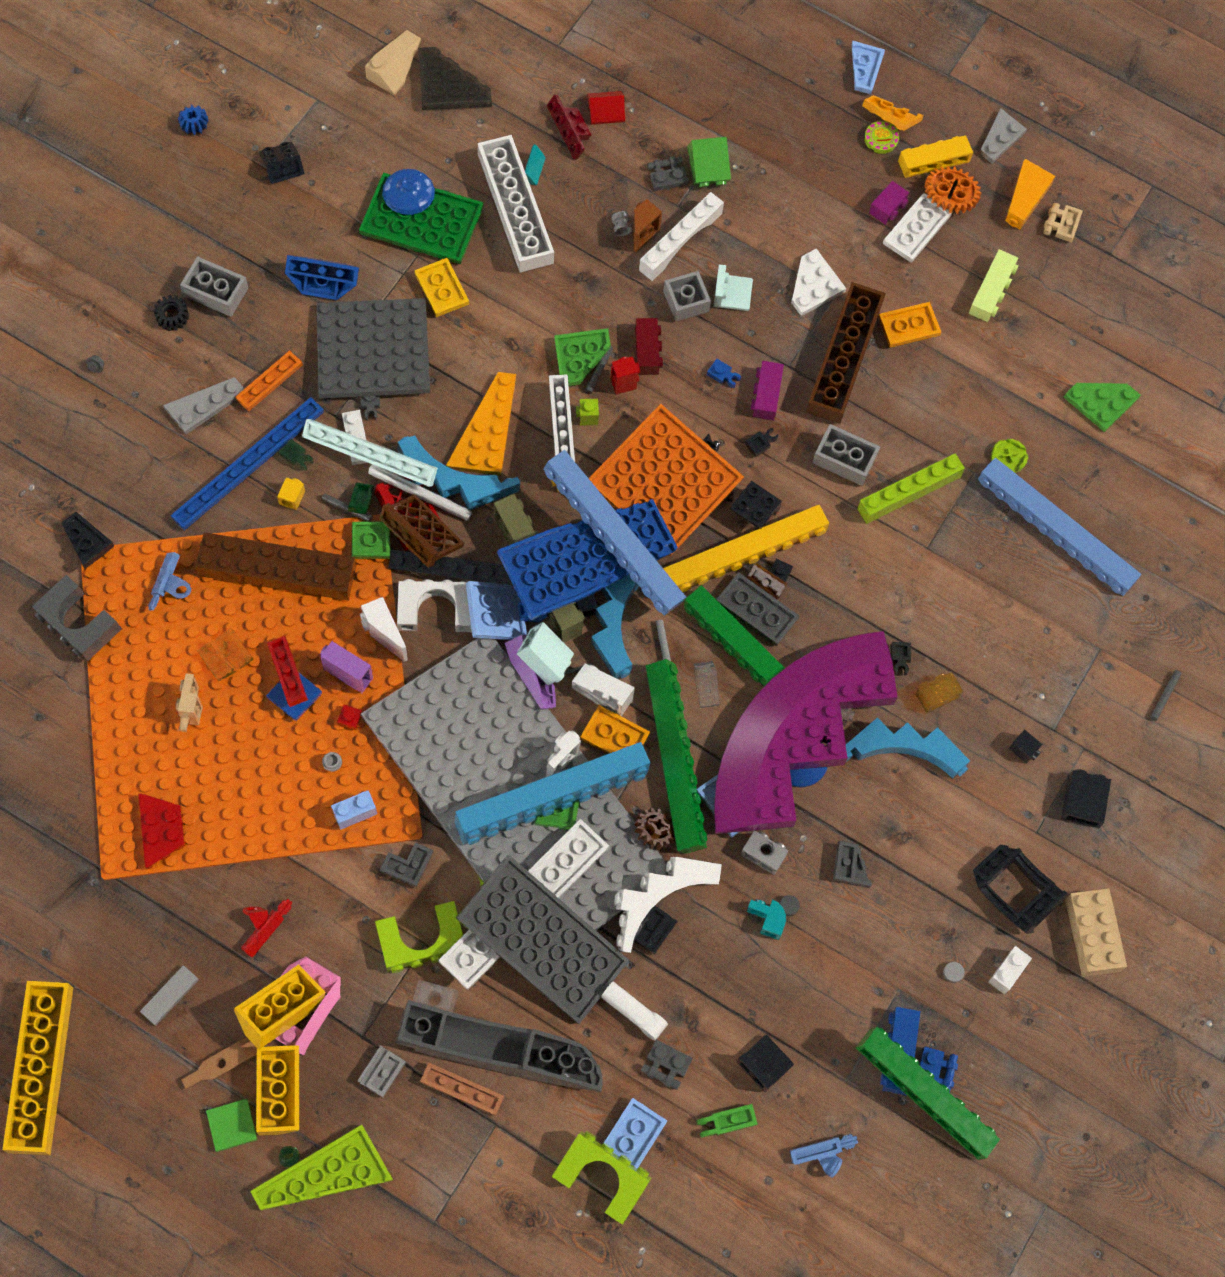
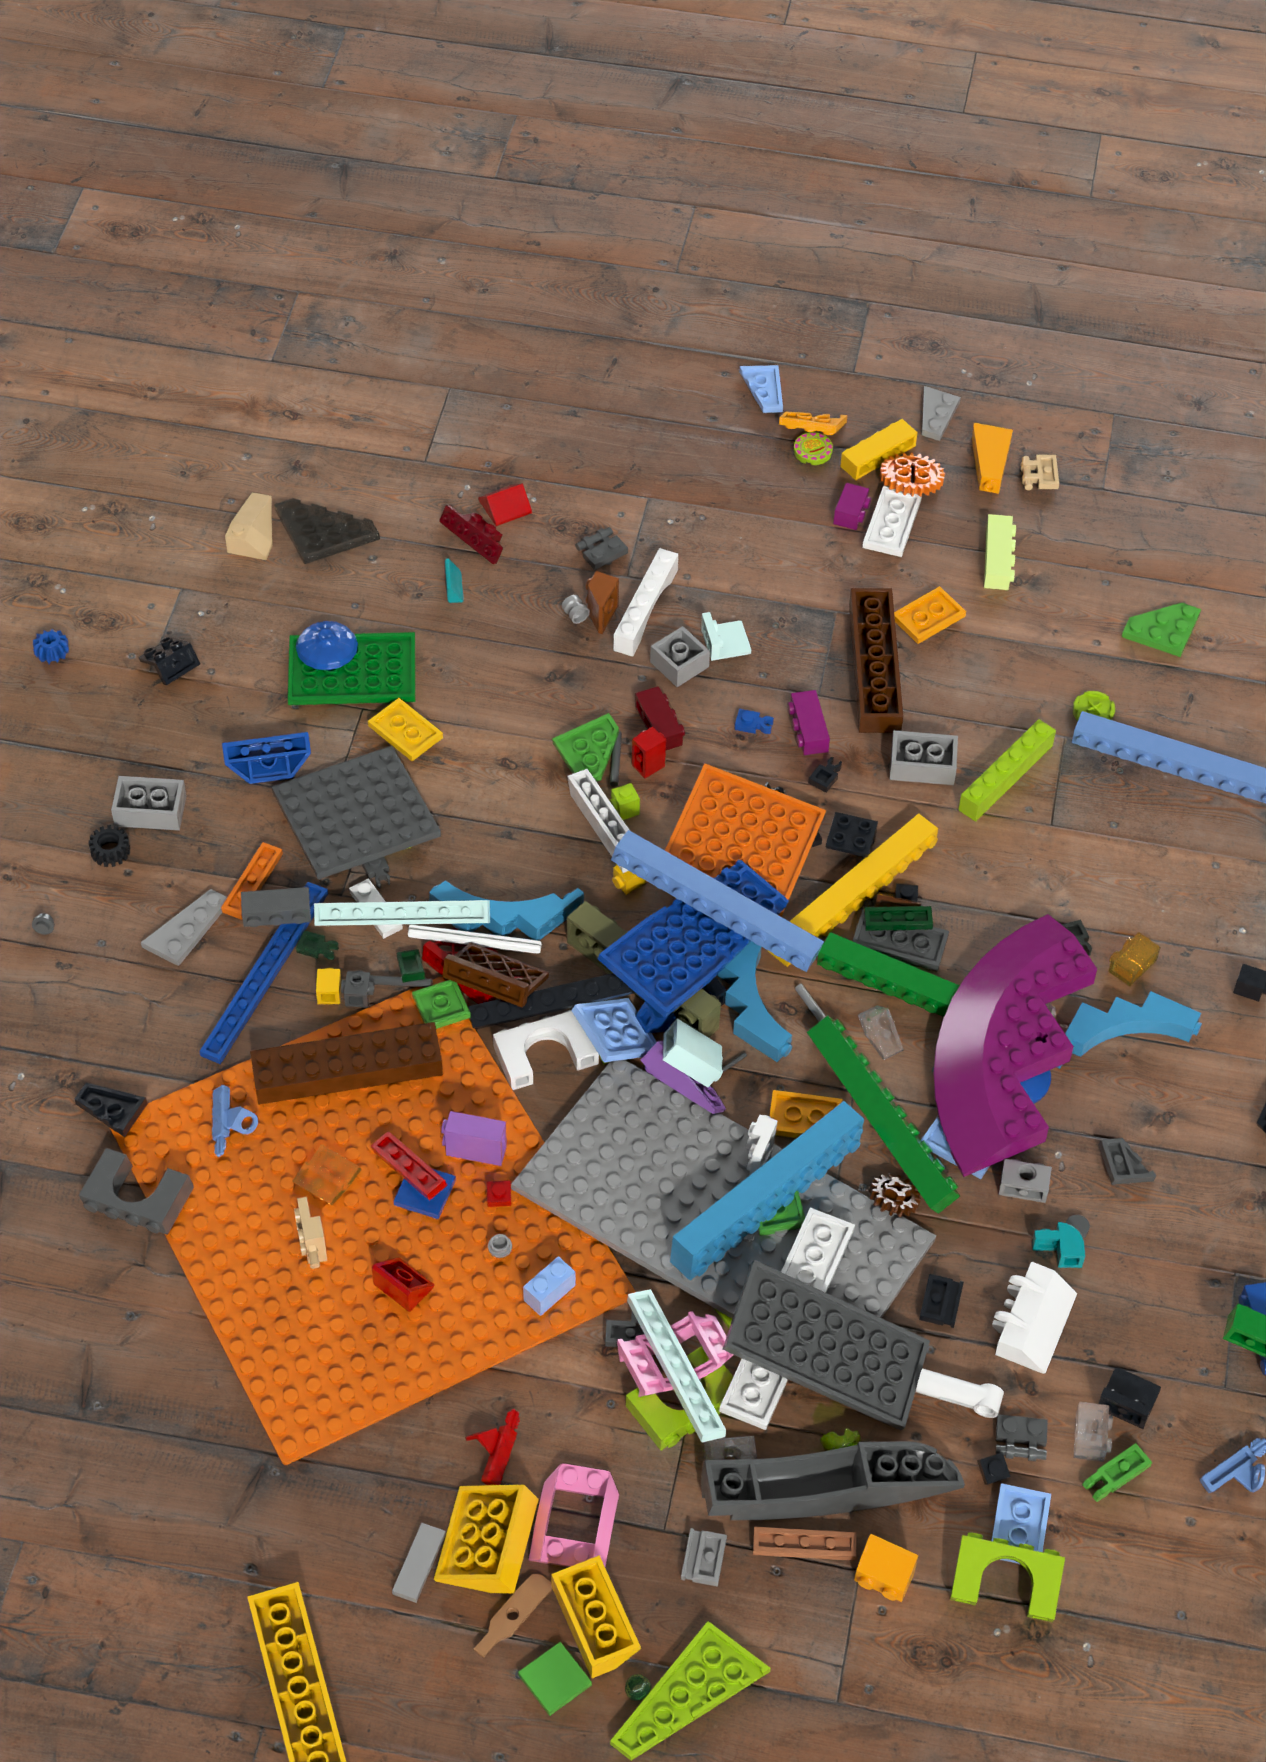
camera: 15 degrees left, 15 degrees down
(160, 828) = (331, 1383): red wing -> none
(222, 988) = (487, 1537): none -> yellow slope
(246, 764) = (401, 1282): none -> red slope
(274, 413) = (276, 907): none -> dark grey brick
(279, 1006) = (558, 1521): yellow slope -> none
(311, 504) = (357, 988): none -> dark grey brick
(381, 626) = (500, 1085): white slope -> none
(395, 901) = (639, 1360): none -> bright pink wedge
(418, 915) = (676, 1366): none -> light aqua plate
(485, 438) = (521, 859): light orange wing -> none
(511, 1135) = (886, 1568): none -> light orange slope
(515, 203) = (451, 622): white brick -> none
(529, 1021) = (833, 1441): none -> clear neon green hair
(603, 689) = (771, 1071): white wedge -> none
(633, 1082) = (993, 1468): none -> black plate
(654, 887) = (913, 1275): white arch -> none
(709, 161) = (642, 521): bright green slope -> none
(720, 971) = (1035, 1317): none -> white piece
(724, 1069) = (1092, 1418): none -> clear brick
(761, 592) = (898, 918): none -> dark green plate
(815, 283) = (809, 606): white plate -> none

